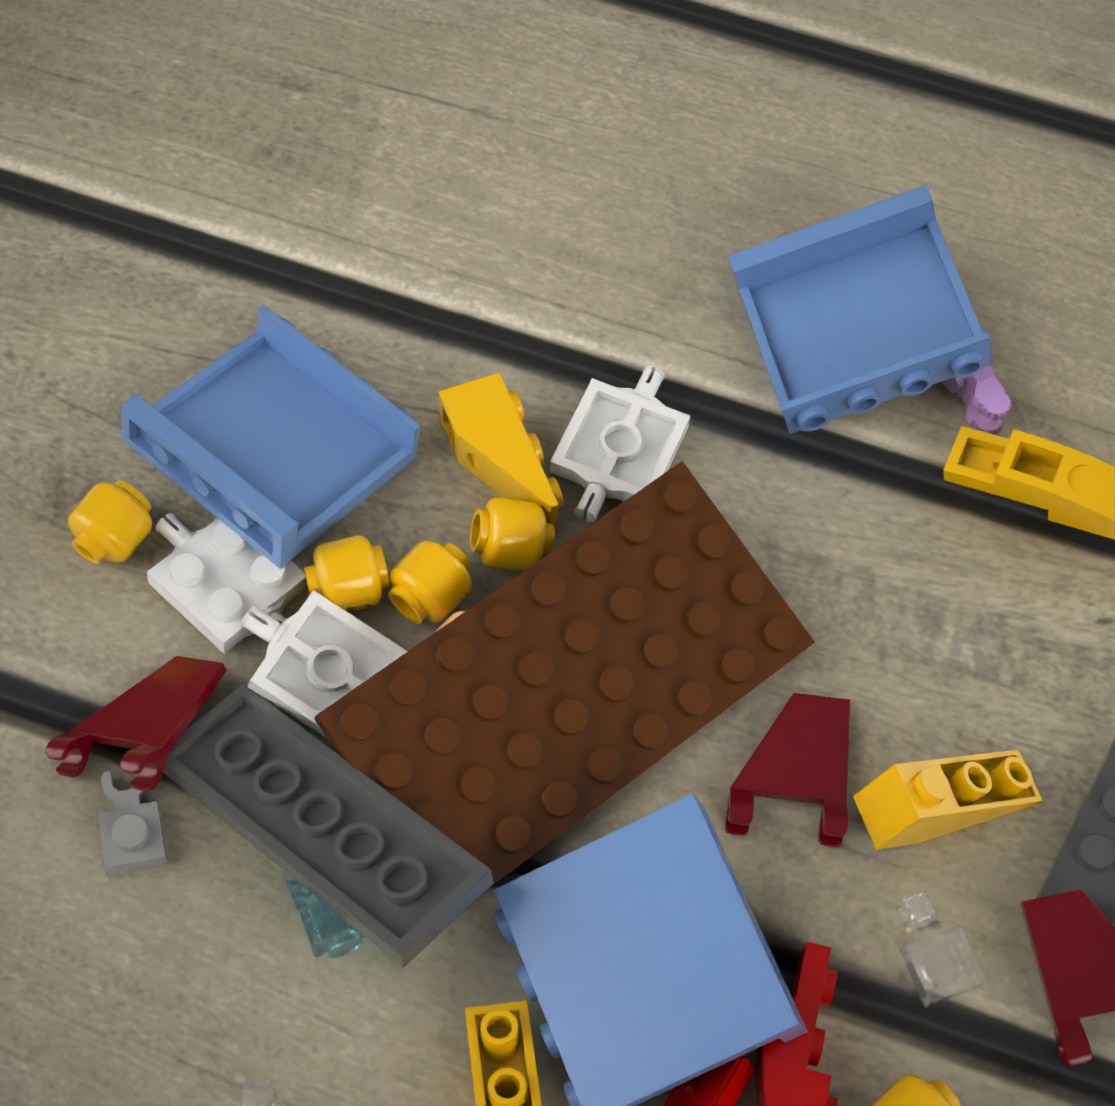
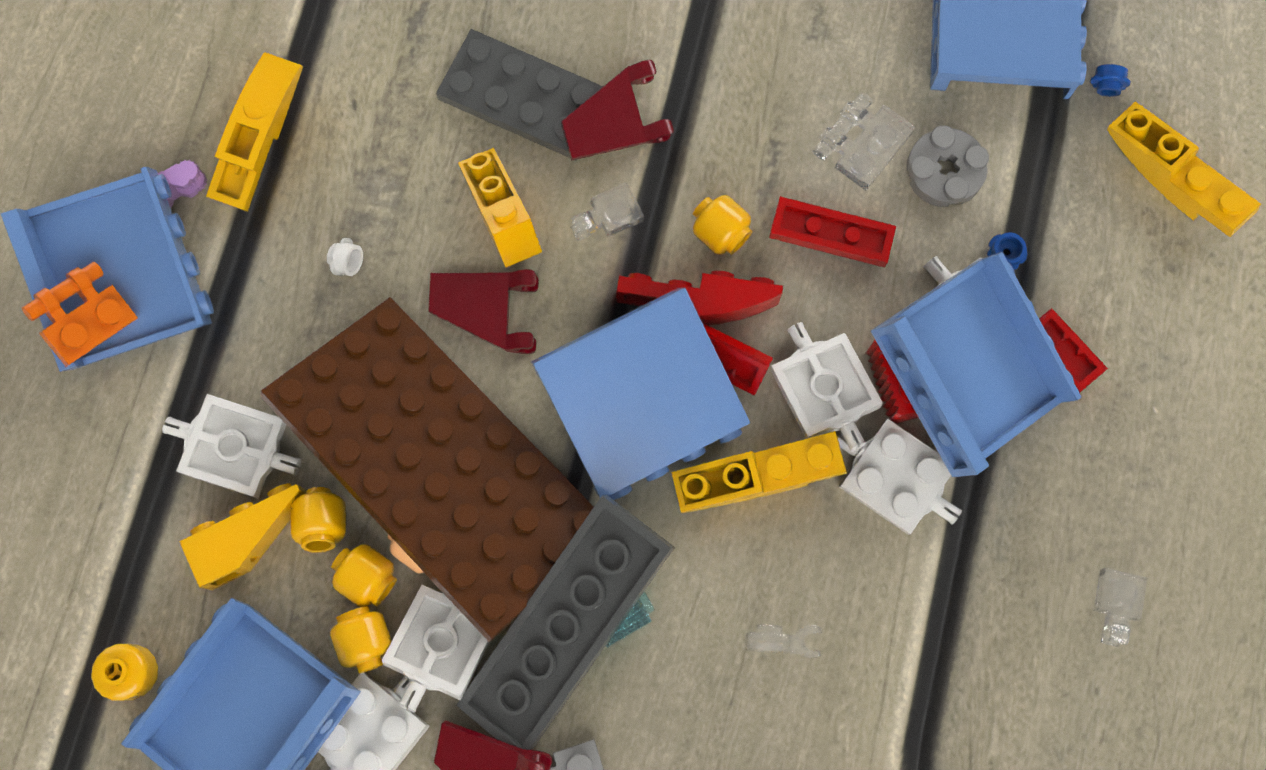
camera: 90 degrees left, 15 degrees up
(349, 315) = (124, 672): none -> yellow head
(785, 283) = (88, 324): none -> orange plate
(873, 590) = (345, 258): none -> white plate

